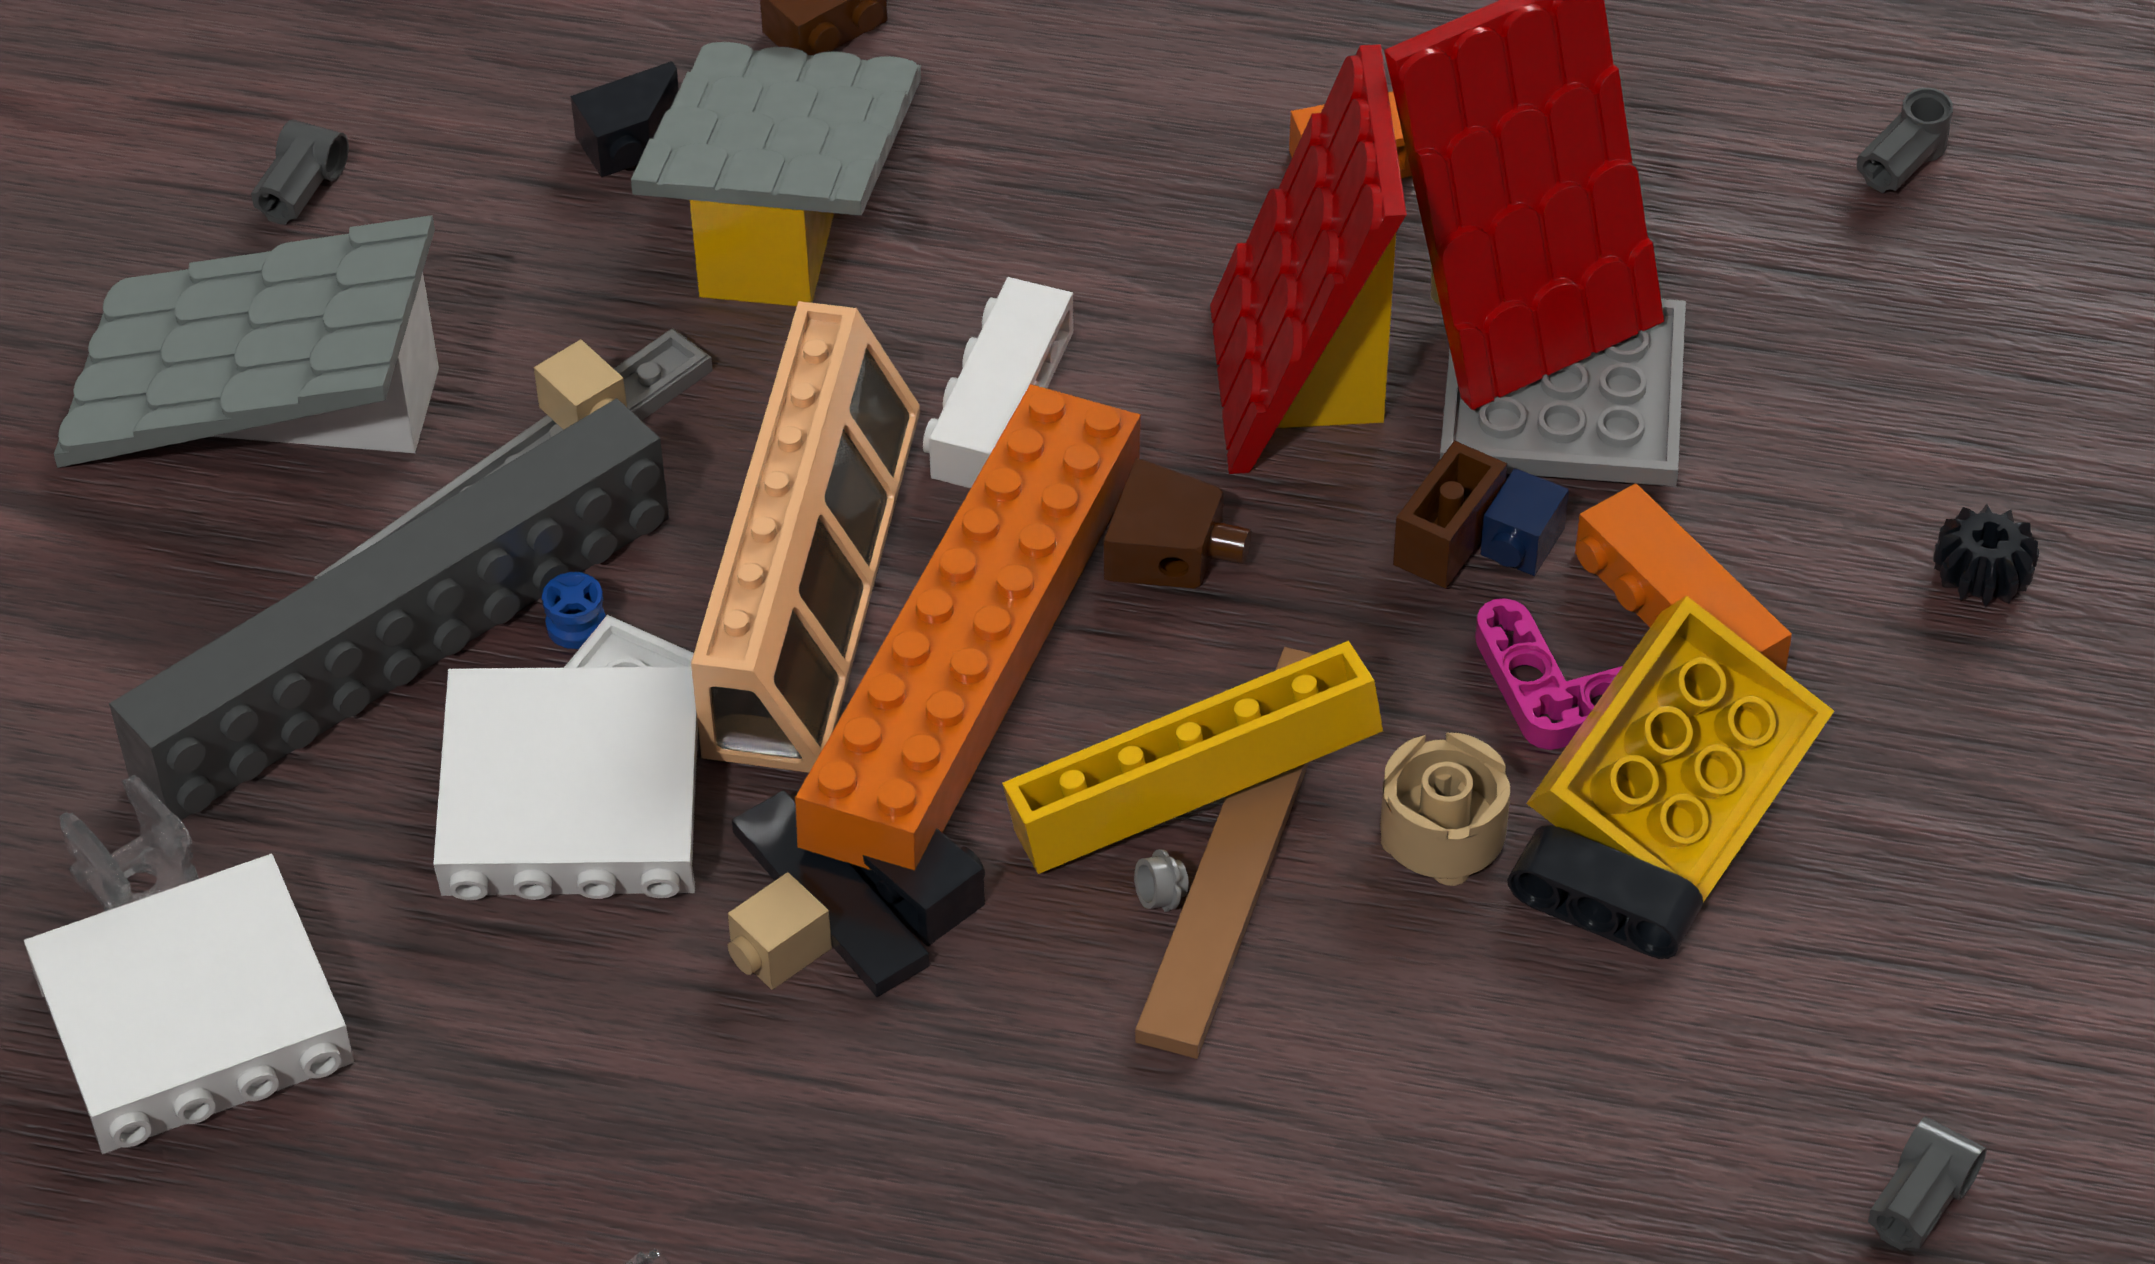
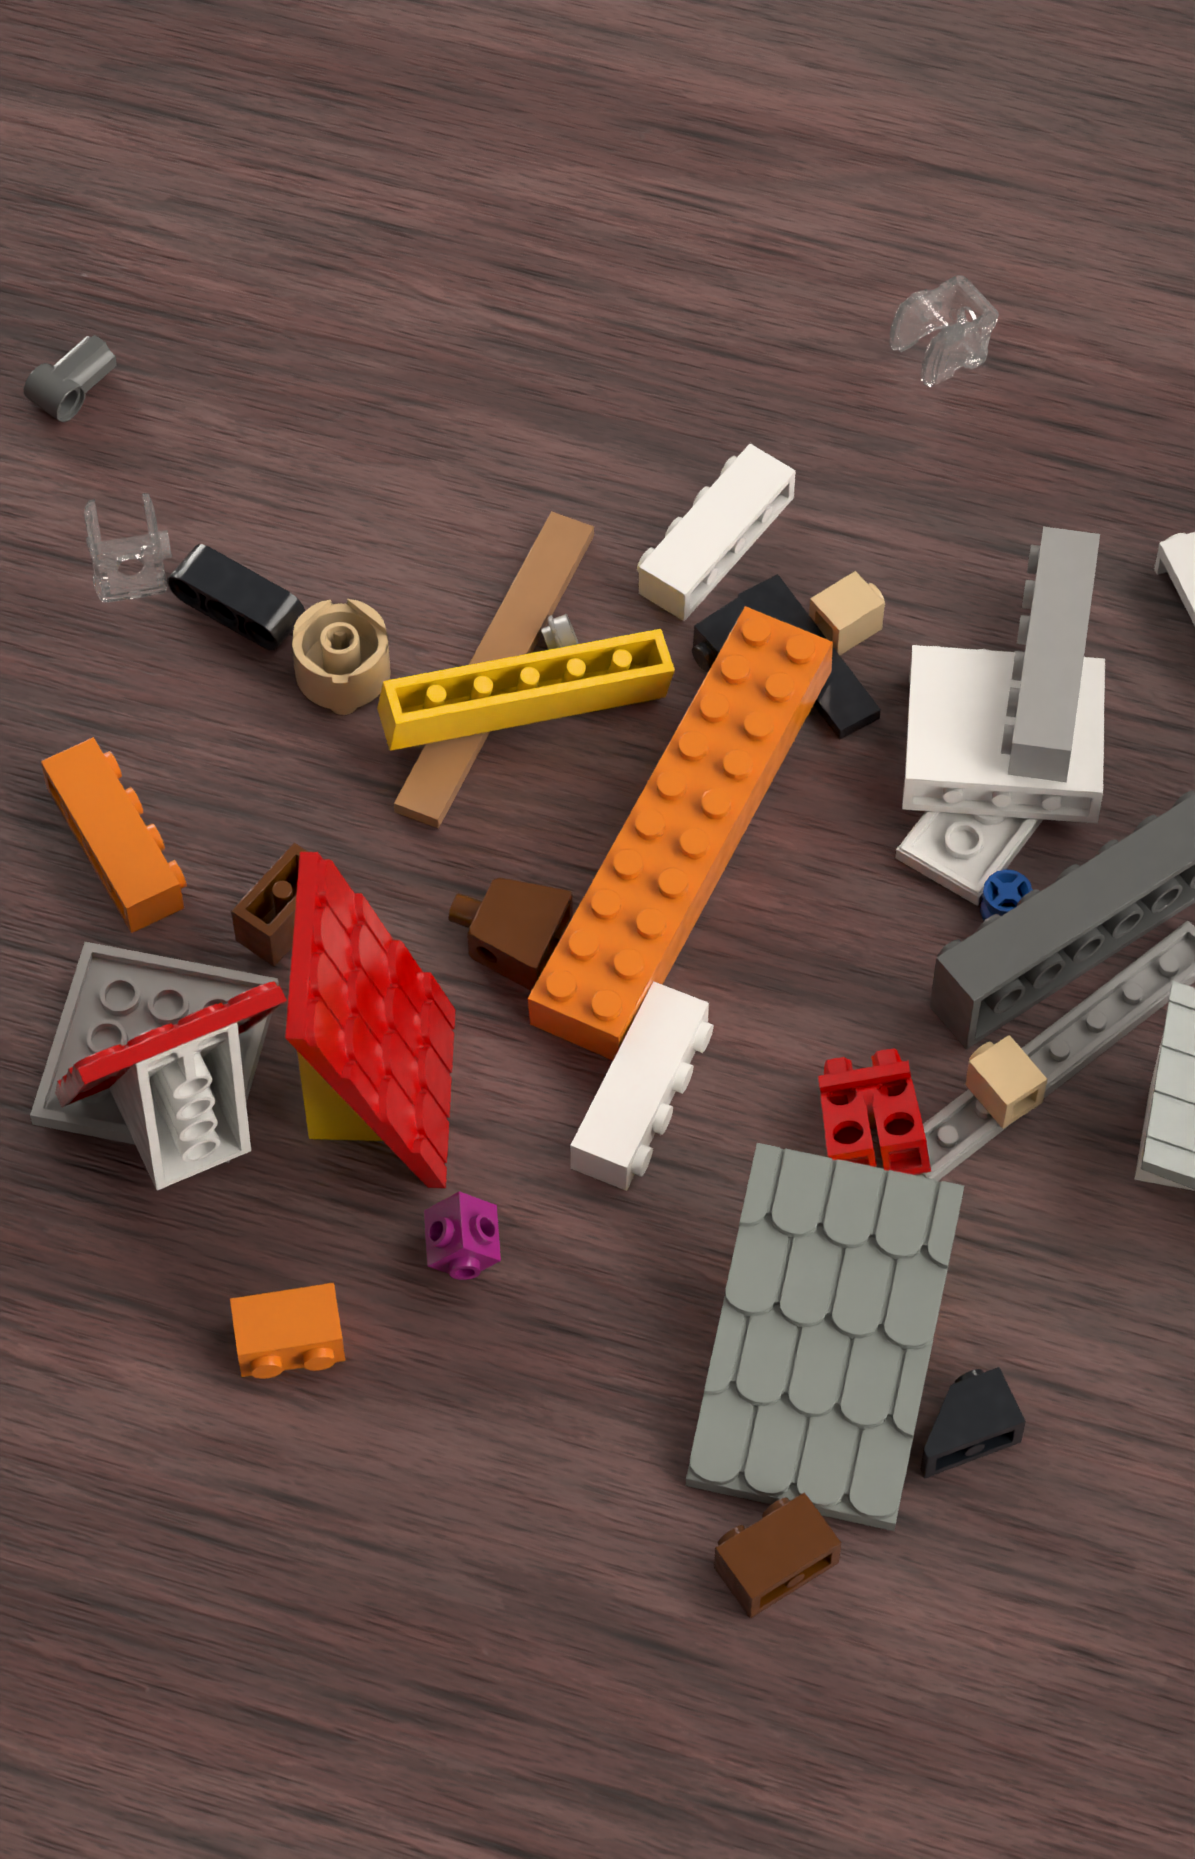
camera: 175 degrees left, 10 degrees up
(501, 830) = (1053, 654): none -> light grey brick
(729, 351) = (869, 1100): none -> red hips
(803, 546) = (813, 904): light nougat window -> none
(963, 1030) = (715, 531): none -> white brick
(1181, 222) = (462, 1236): none -> magenta brick
(1524, 522) = (209, 909): dark blue brick -> none
(1545, 695) = (234, 768): dark pink beam -> none
(1683, 749) = (159, 675): yellow slope -> none
(1795, 915) = (108, 555): none -> clear piece

